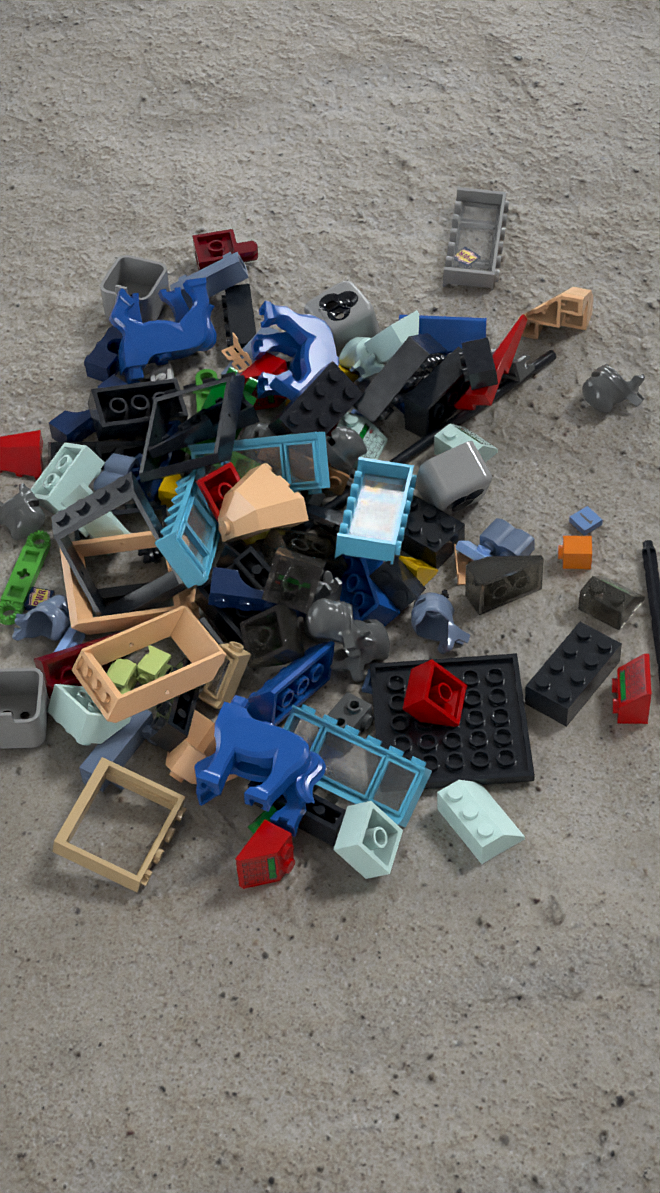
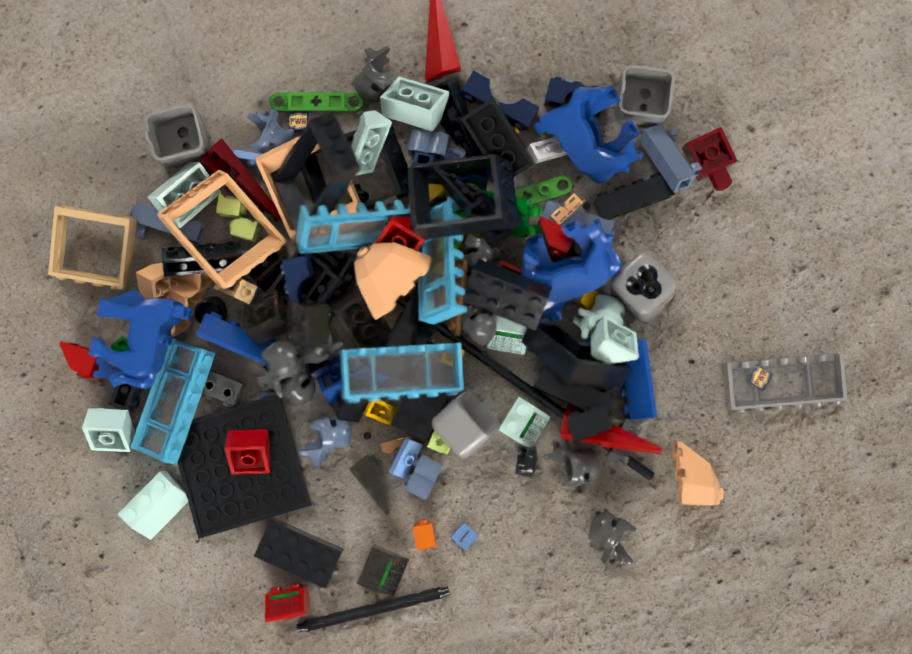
camera: 75 degrees right, 35 degrees up
(471, 515) = (438, 444): none -> yellowish green window
(510, 446) = (527, 461): none -> black hair
(525, 405) = (579, 465): none -> dark grey piece

